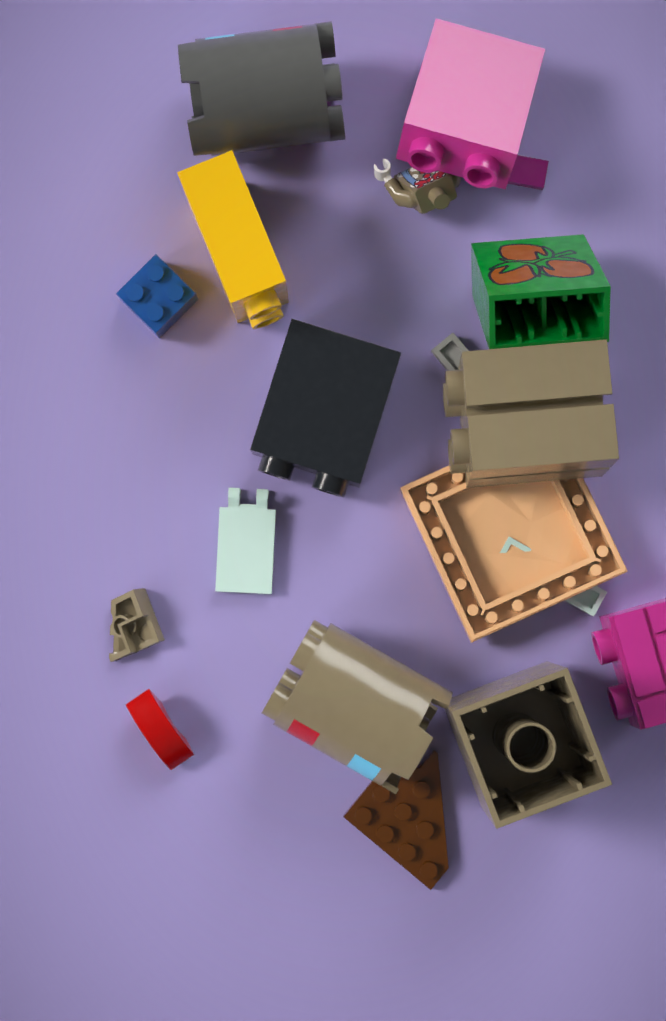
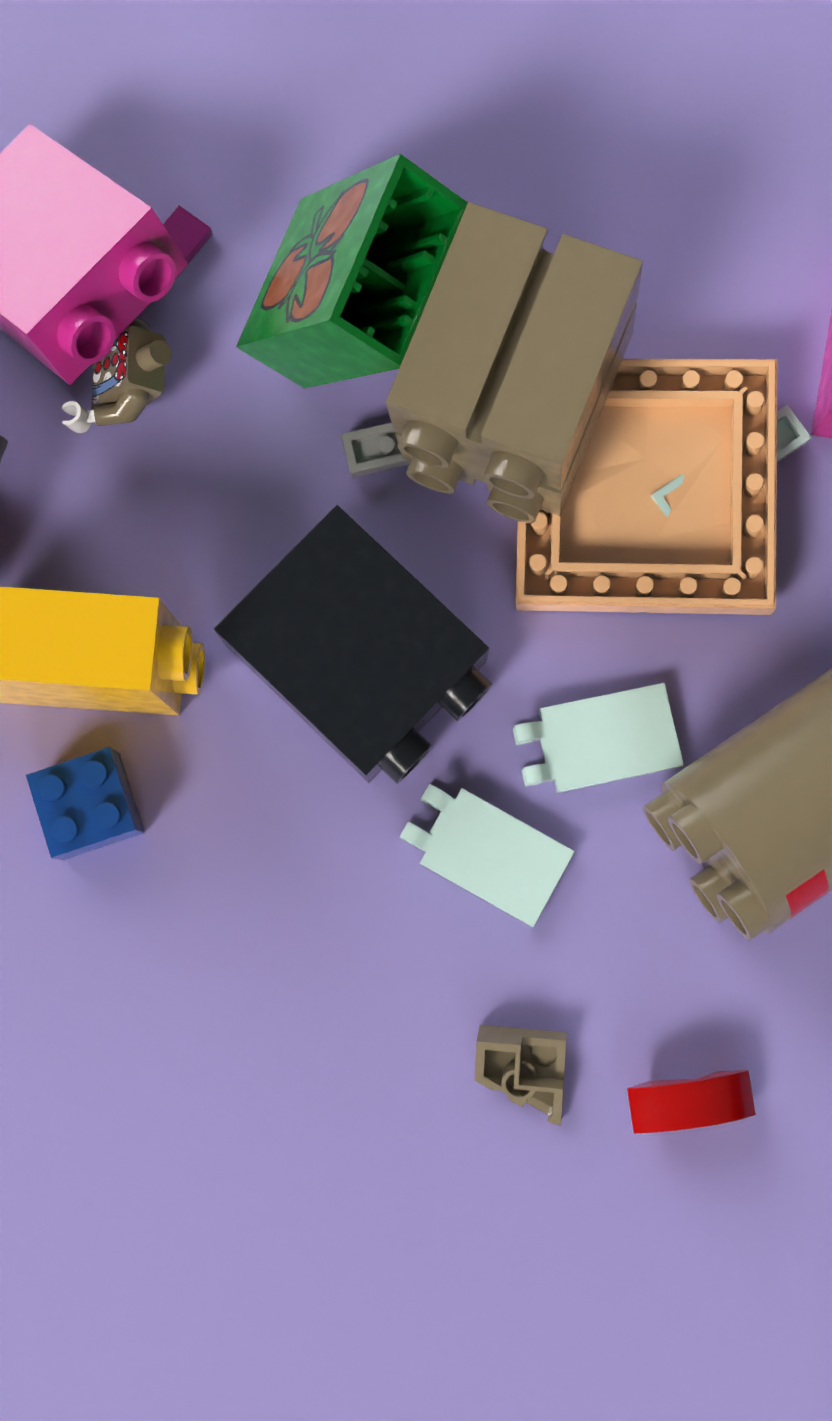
camera: 60 degrees left, 5 degrees down
(346, 579) = (603, 739): none -> light aqua tile

